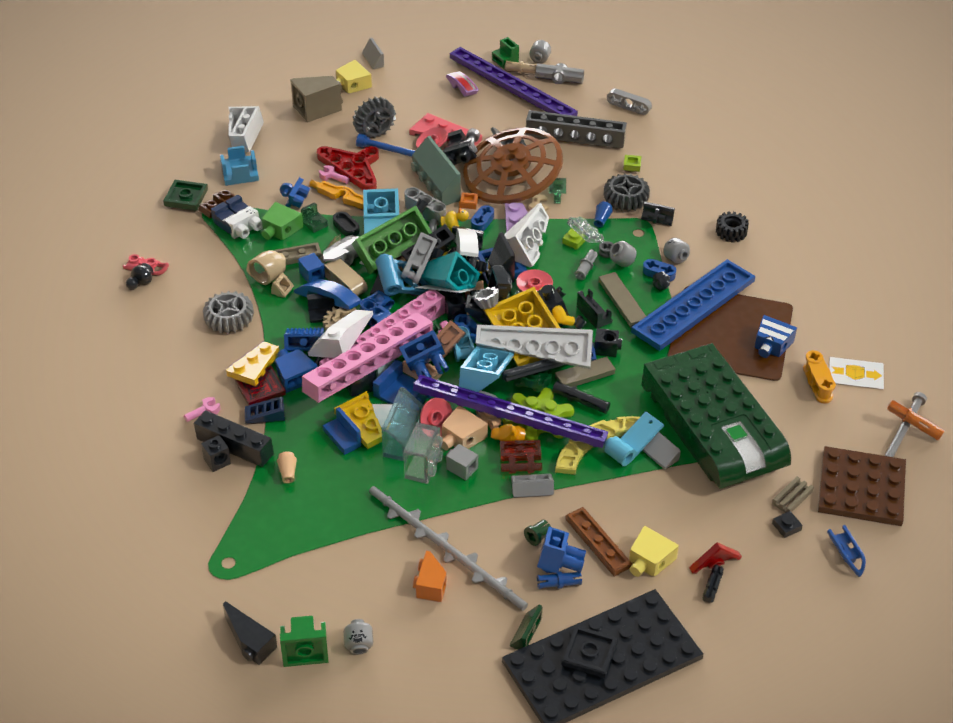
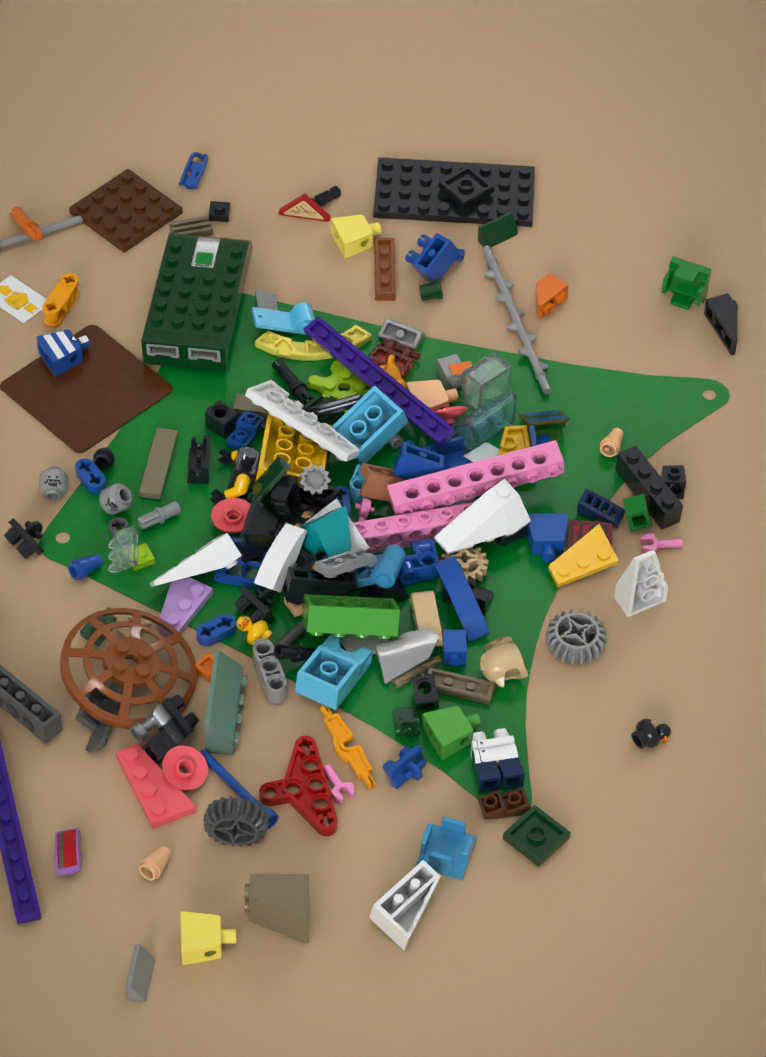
camera: 150 degrees left, 5 degrees up
(135, 260) = (630, 748): coral piece -> none
(196, 347) = (641, 585): none -> white wedge
(231, 409) = (637, 512): none -> green brick
(301, 339) = (518, 559): blue brick -> none
(310, 231) = (429, 700): none -> black brick
(346, 224) = (373, 700): black tile -> none
(356, 456) = (544, 418): none -> piece
(358, 637) = (637, 279): light grey head -> none
(408, 97) = (154, 864): none -> light nougat cone
(451, 455) = (458, 368): none -> orange sticker
(516, 283) = (270, 478): none -> dark green slope
(626, 192) = (32, 587): dark grey gear -> none
(692, 304) = (96, 420): blue plate -> none

